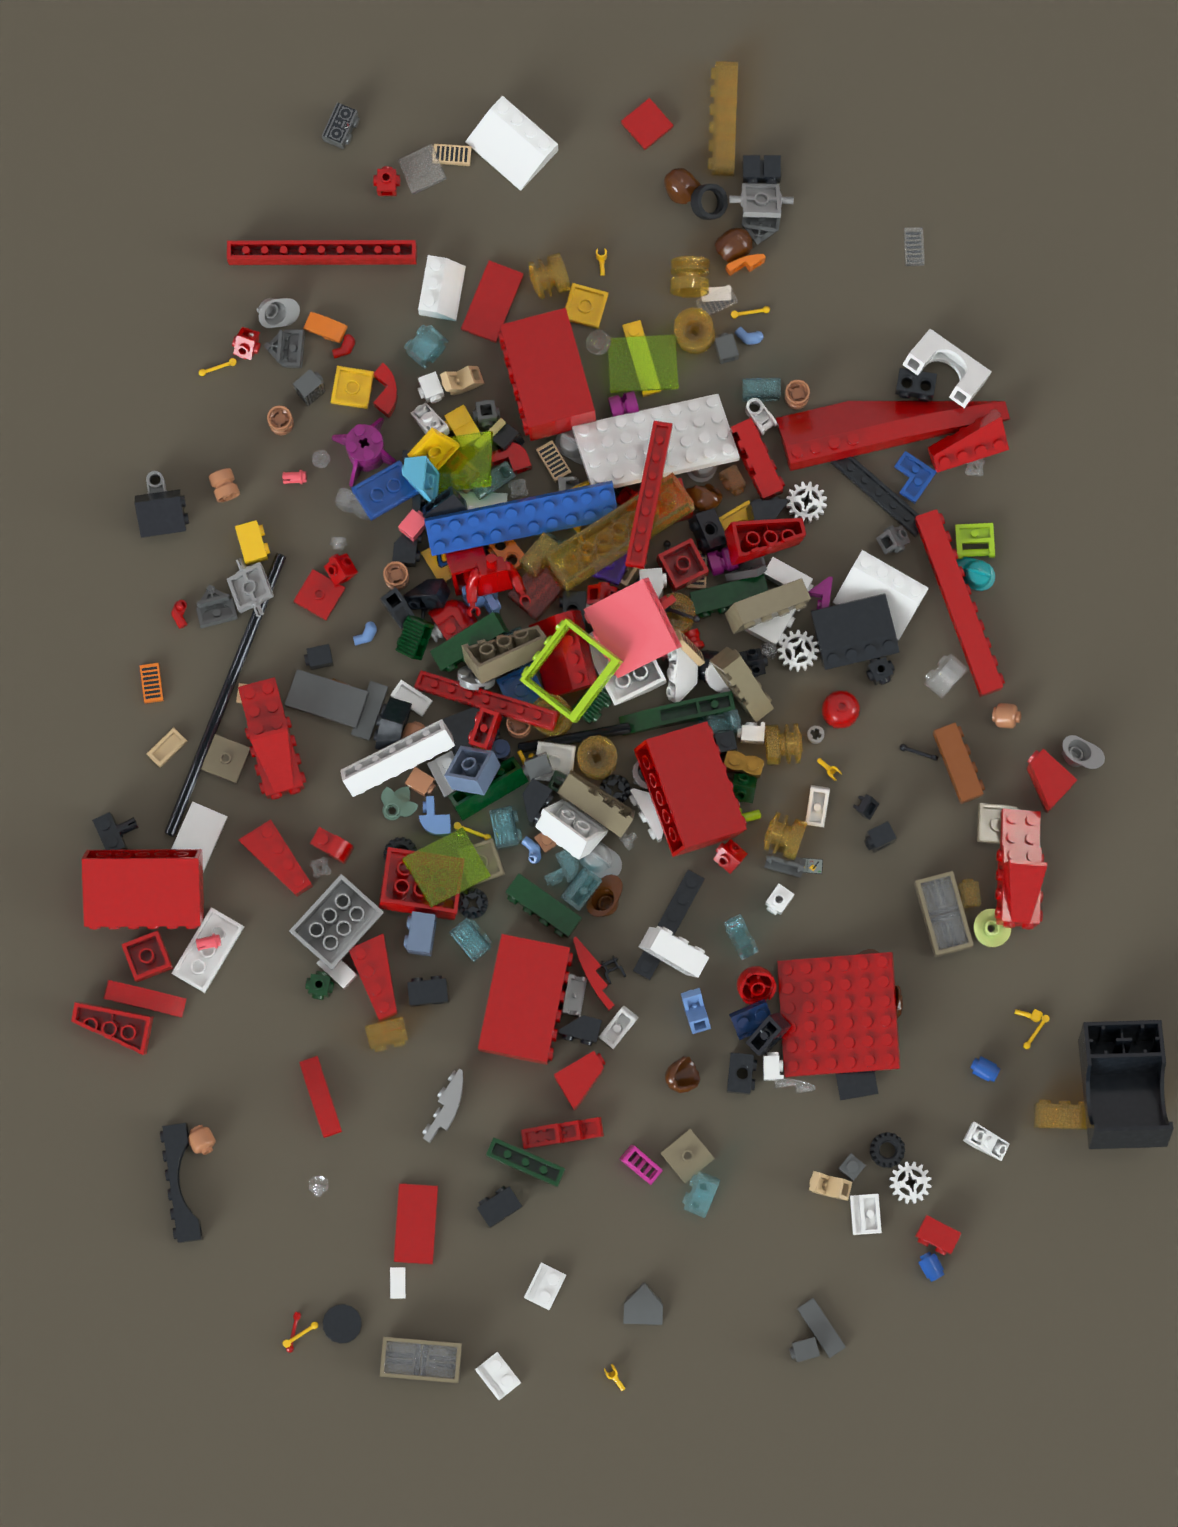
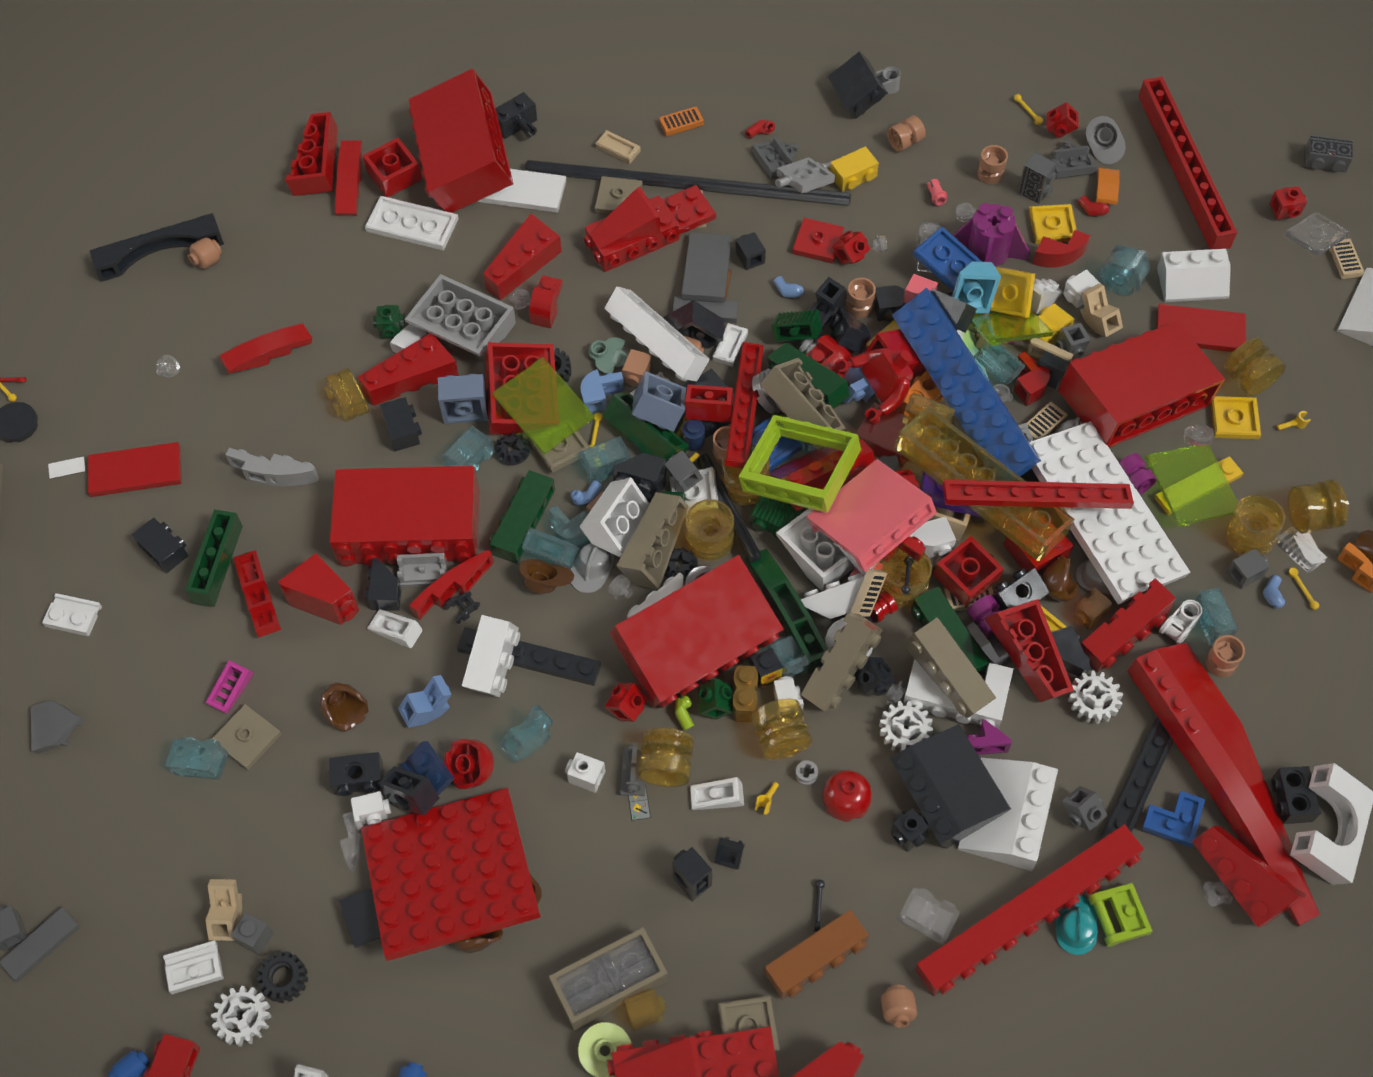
camera: 75 degrees right, 20 degrees down
(208, 942) = (419, 219): coral pin -> none

